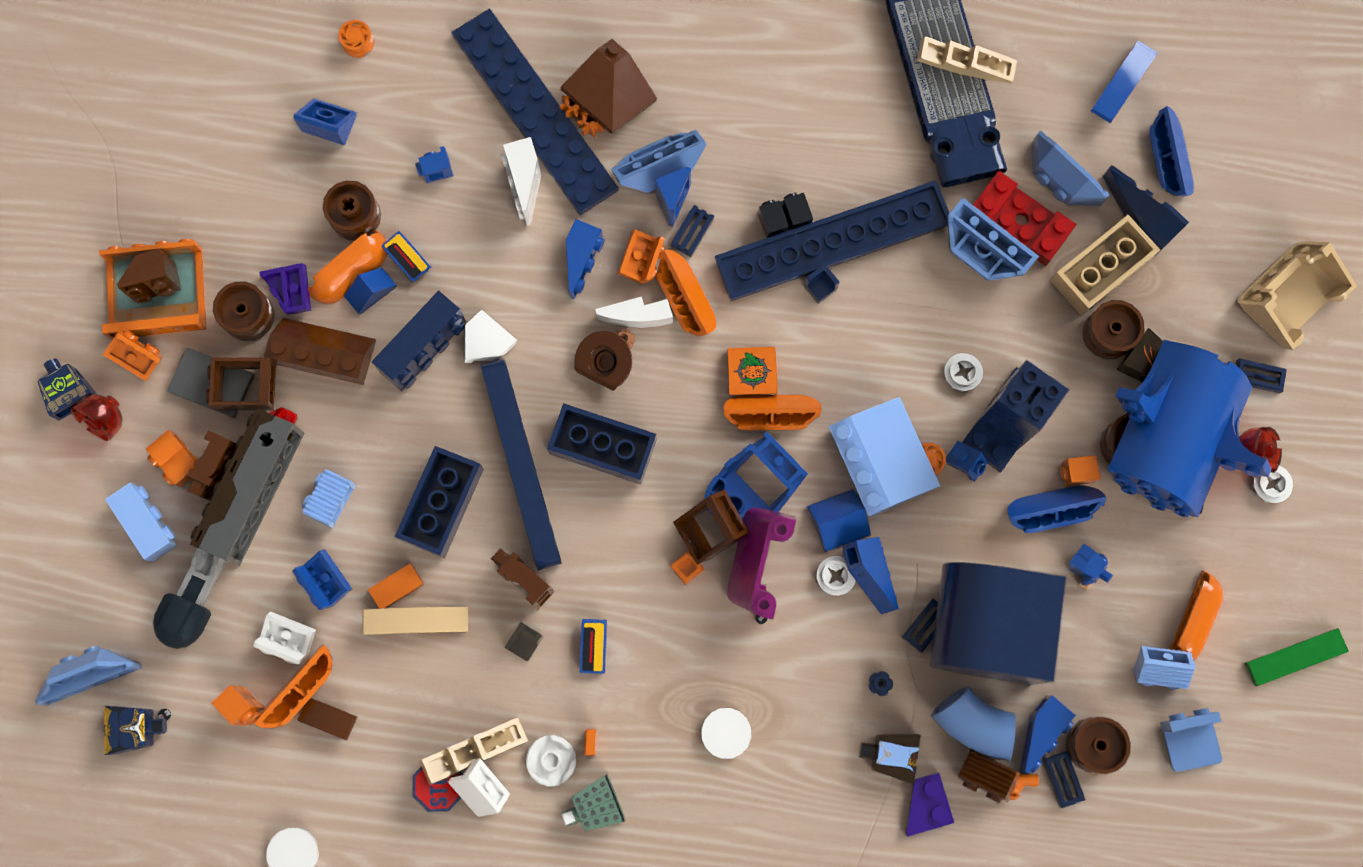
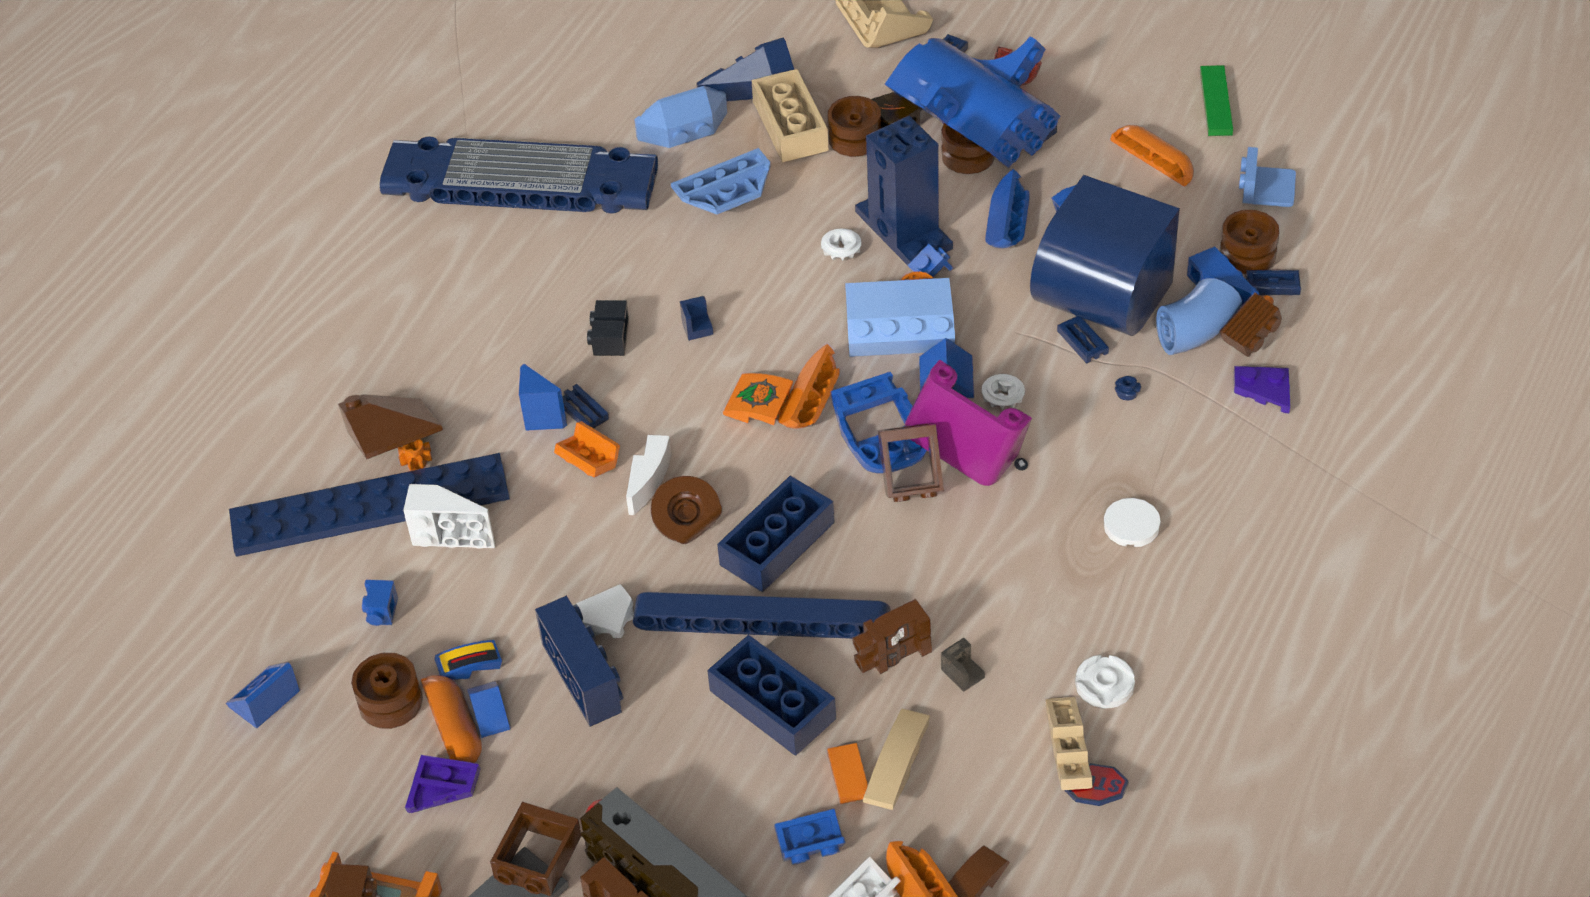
camera: 65 degrees left, 30 degrees down
(243, 311) = (447, 827): reddish brown wheel -> none
(320, 350) = (538, 767): reddish brown slope -> none
(328, 498) = (715, 807): light blue brick -> none
(356, 38) = (184, 639): orange wheel -> none
(480, 789) = (1116, 745): white panel -> none
(570, 111) = (386, 464): orange gear -> none
(581, 247) = (553, 502): blue slope -> none
(590, 742) = (1098, 634): orange tile -> none
(593, 646) = (991, 604): slope -> none
(595, 806) = (1169, 647): sand green torso -> none
(658, 159) = (493, 402): medium blue wedge -> none
(685, 294) = (636, 430): orange brick -> none
(686, 568) = (941, 508): orange tile -> none
(833, 240) = (655, 304): dark blue plate -> none
(869, 568) = (1015, 358): blue slope -> none
(893, 755) = (1206, 392): torso -> none
(967, 61) = (539, 143): tan slope -> none
(1044, 229) = (731, 143): red piece -> none
(1080, 470) = (979, 187): orange brick -> none
(1124, 82) = (621, 60): blue slope -> none
(1164, 668) = (1193, 179): light blue brick -> none
(1171, 154) = (706, 48): blue brick -> none
(1283, 486) = (1058, 69): white gear -> none

